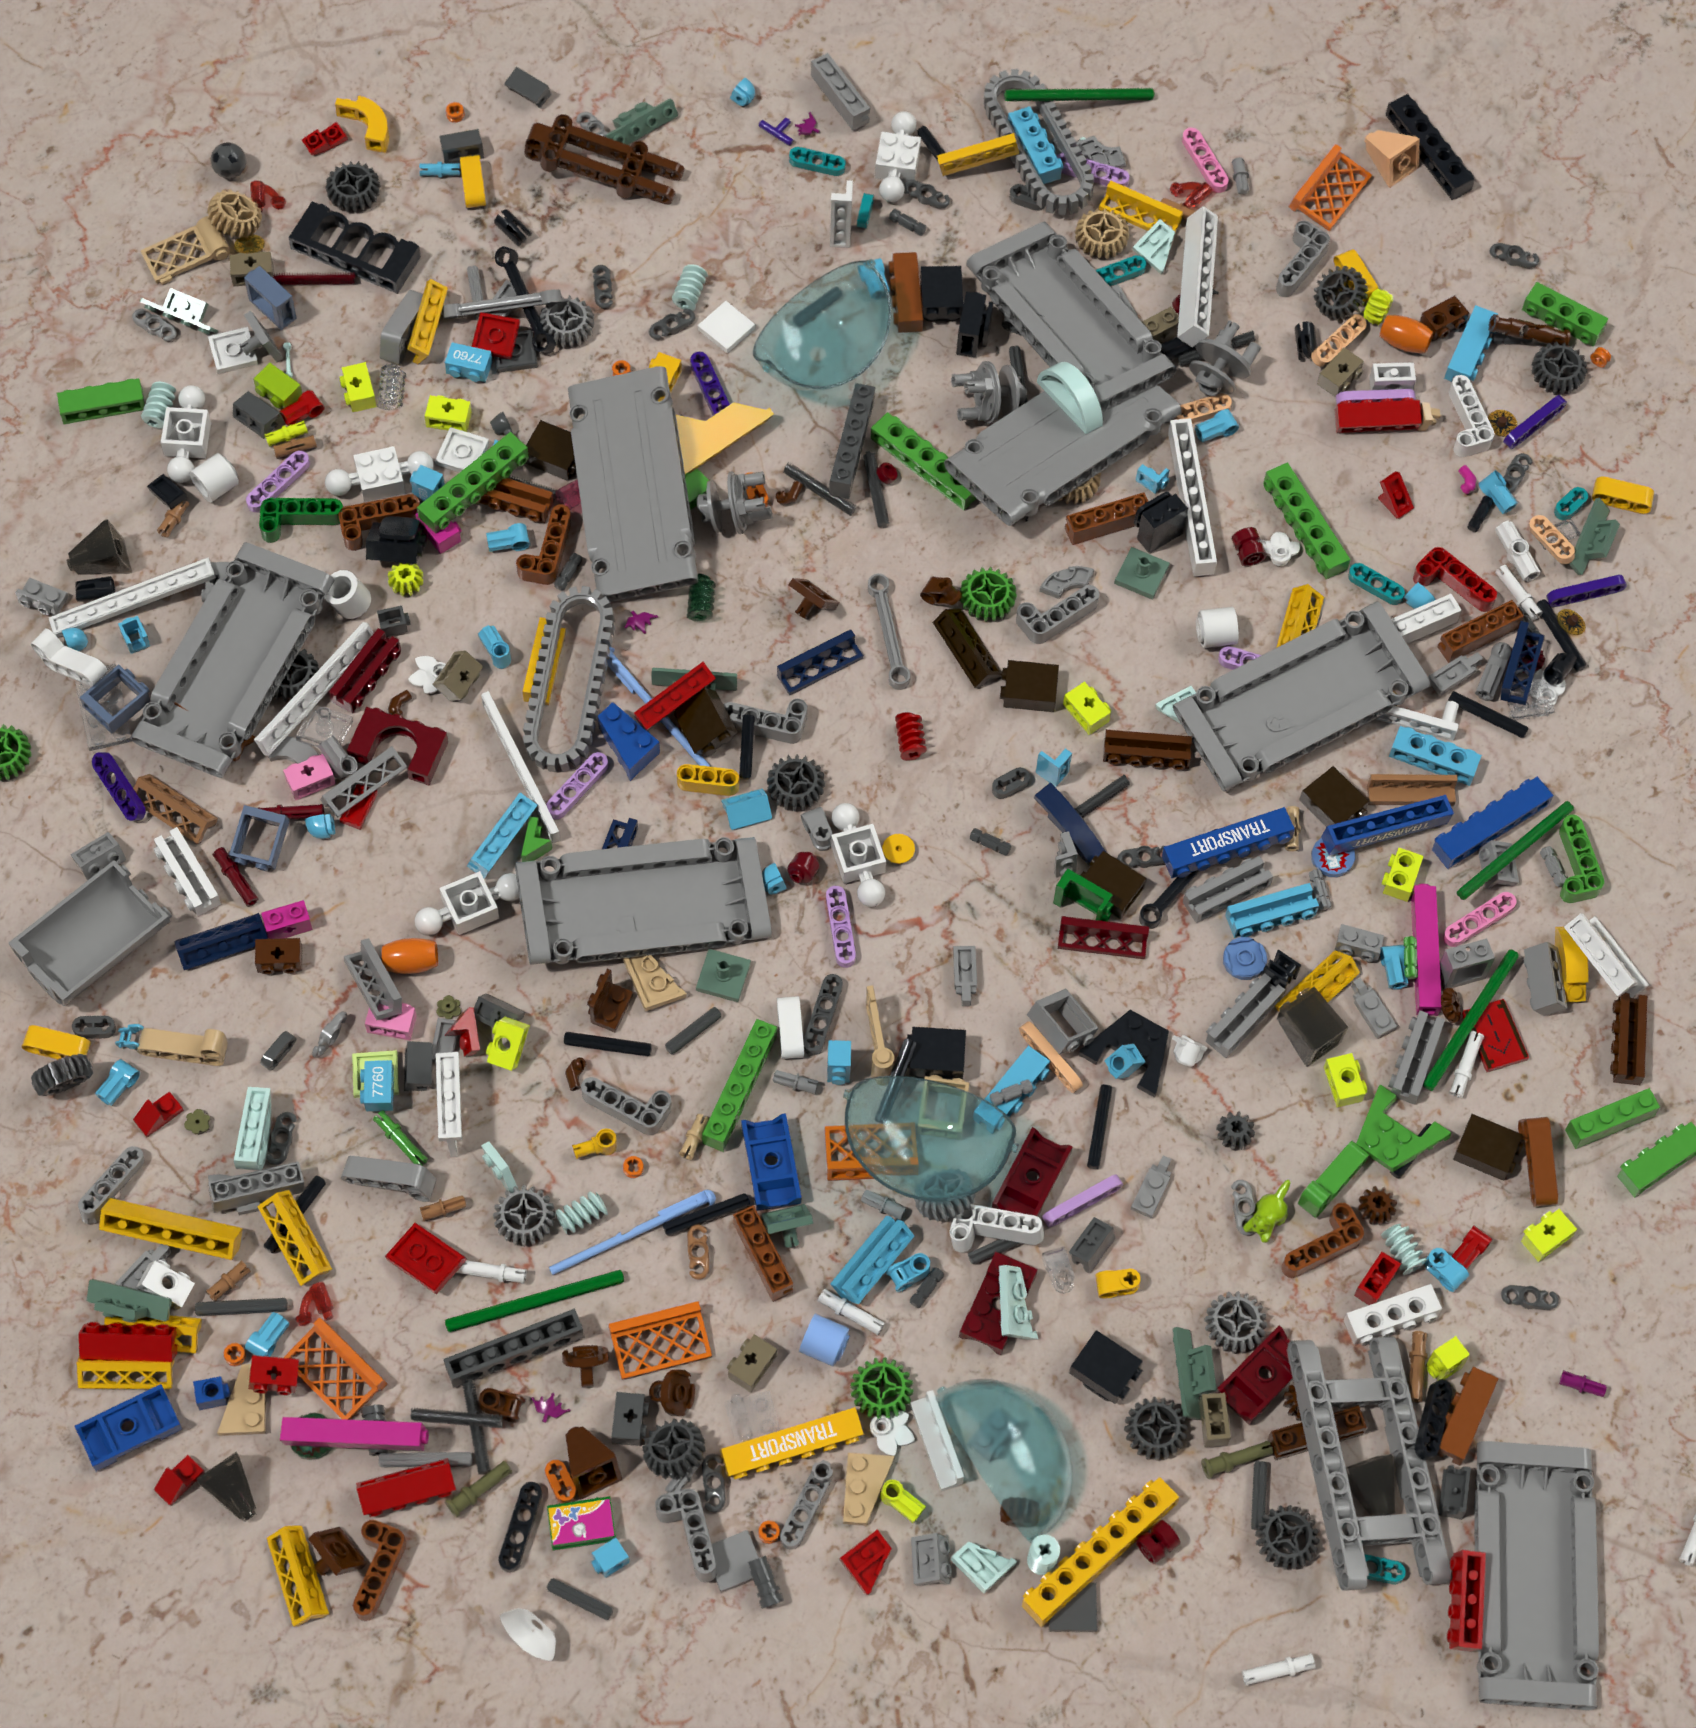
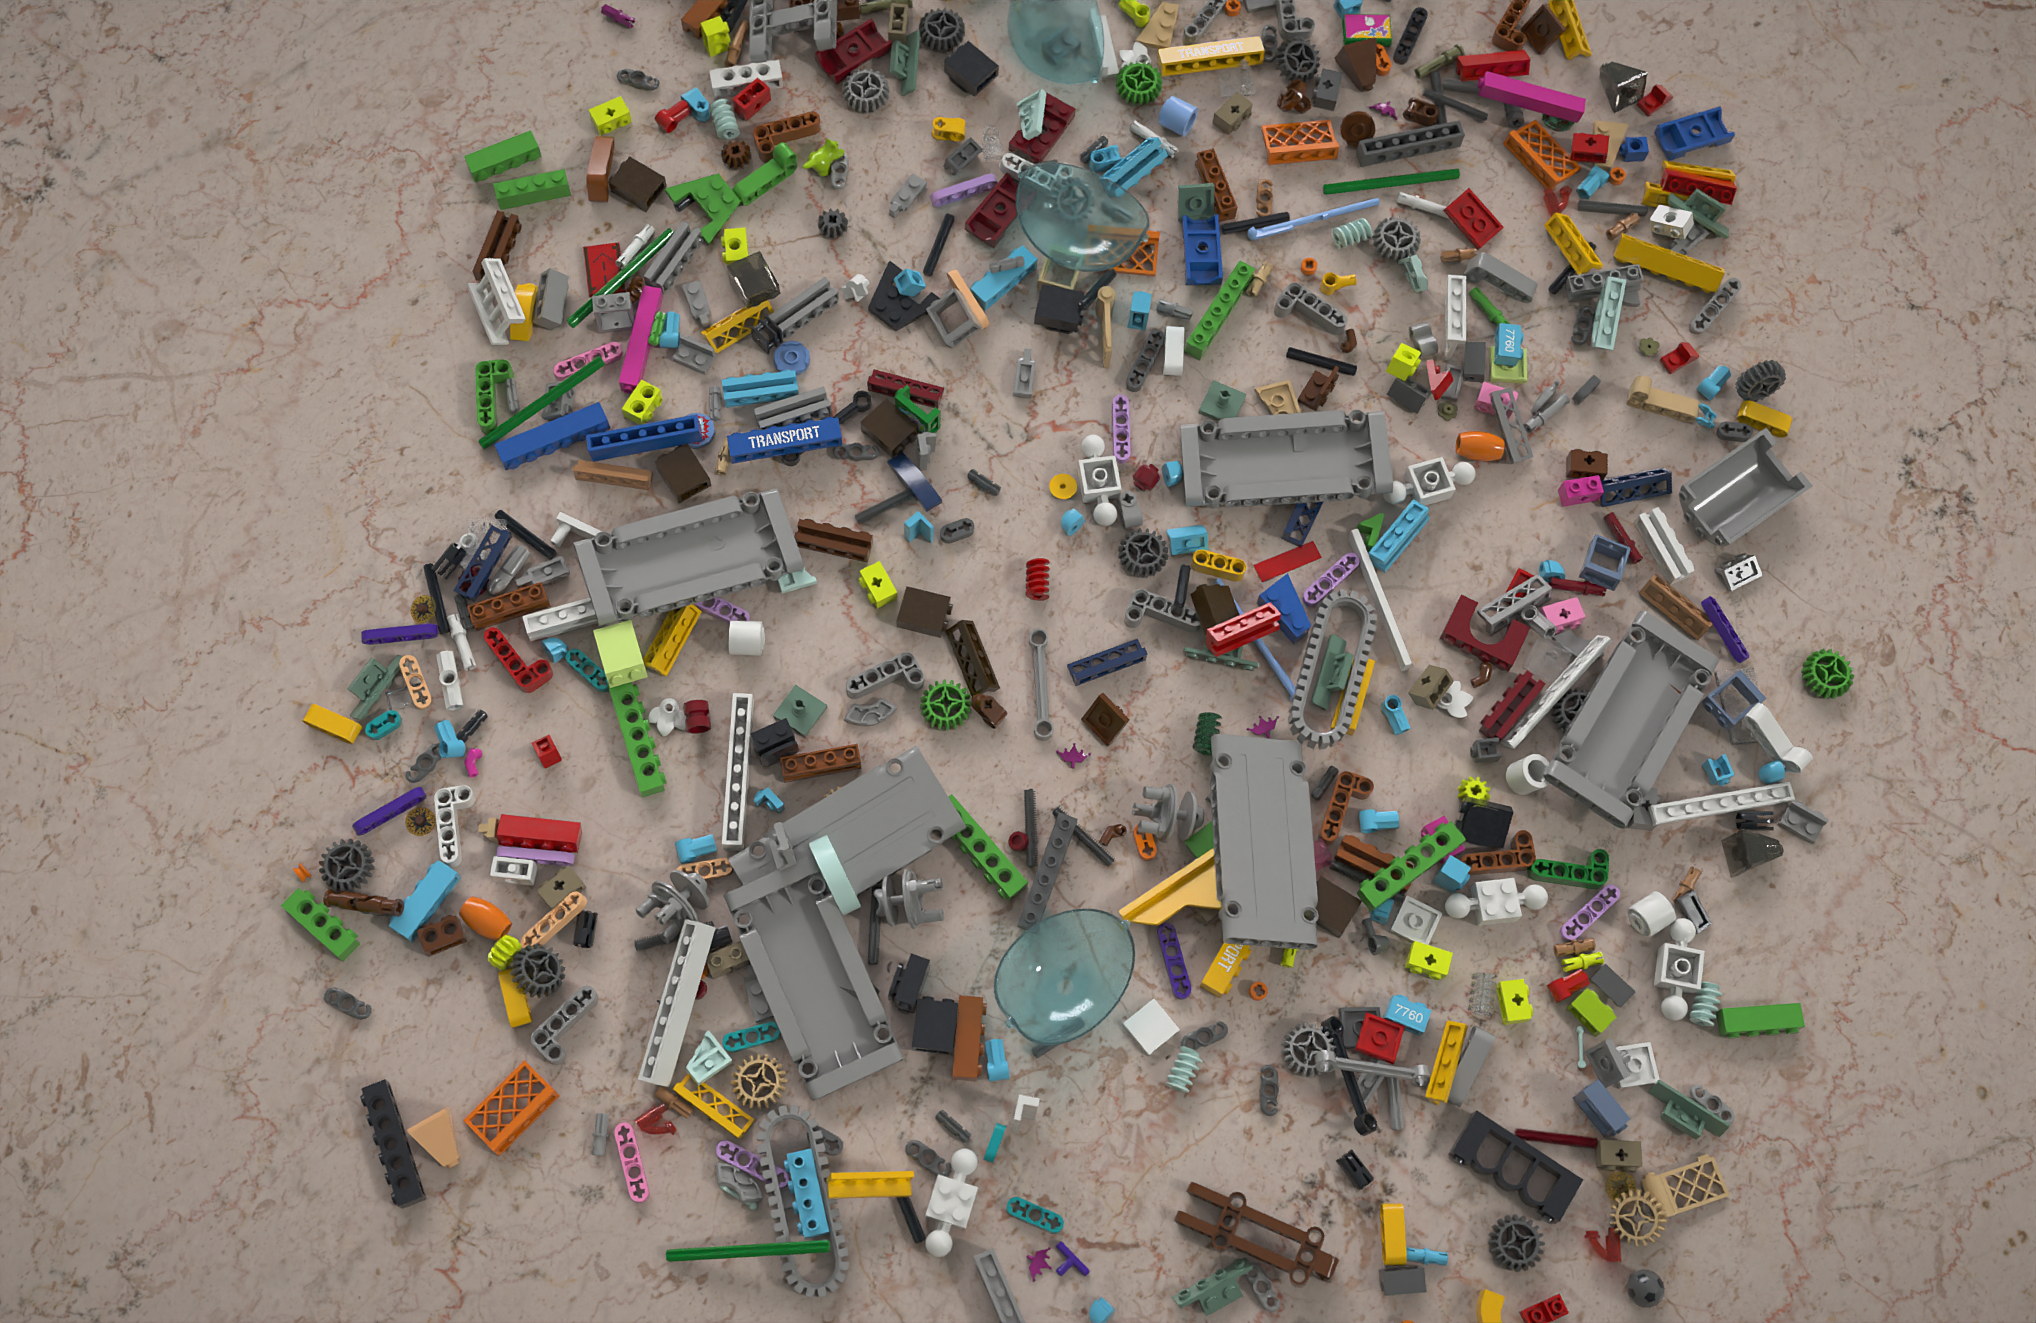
camera: 175 degrees left, 5 degrees up
(334, 1007) = (1540, 418): none -> light grey pin
(483, 1086) = (1423, 339): none -> light grey axle
(567, 681) = (1333, 672): none -> sand green bracket
(628, 803) = (1287, 561): none -> red sticker
(693, 1030) = (1251, 362): dark grey axle -> none
(842, 565) = (1073, 755): none -> magenta piece
(882, 808) = (1072, 521): none -> medium azure piece
(1126, 404) = (782, 848): none -> light grey bracket
(1344, 585) = (620, 653): none -> yellowish green slope
(1426, 760) = (562, 483): medium azure brick -> none

